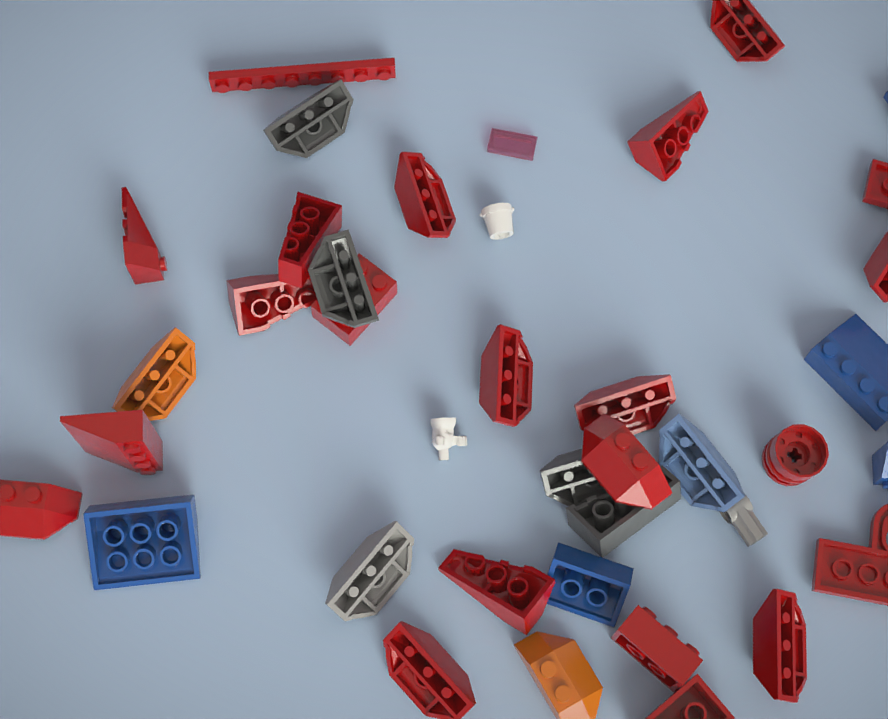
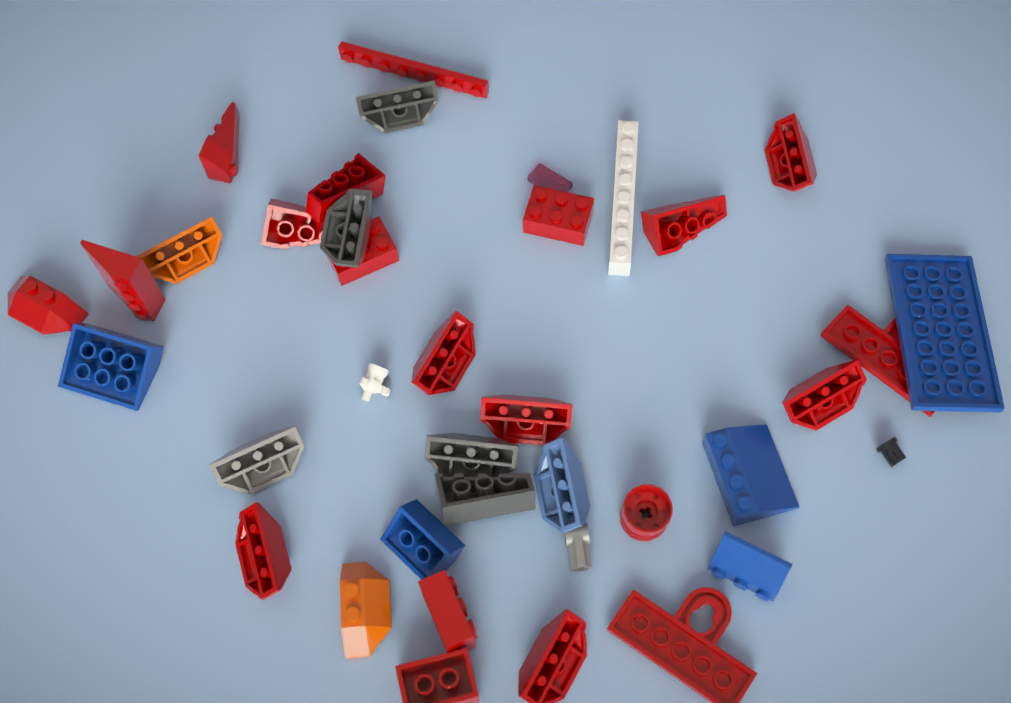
camera: 30 degrees right, 5 degrees down
(423, 197) = (455, 194): red wedge -> none
(498, 220) = (505, 234): white piece -> none
(507, 590) = (357, 518): red wedge -> none
(543, 177) = (558, 215): none -> red brick
(599, 133) = (623, 198): none -> white brick
(623, 464) = (491, 458): red wedge -> none

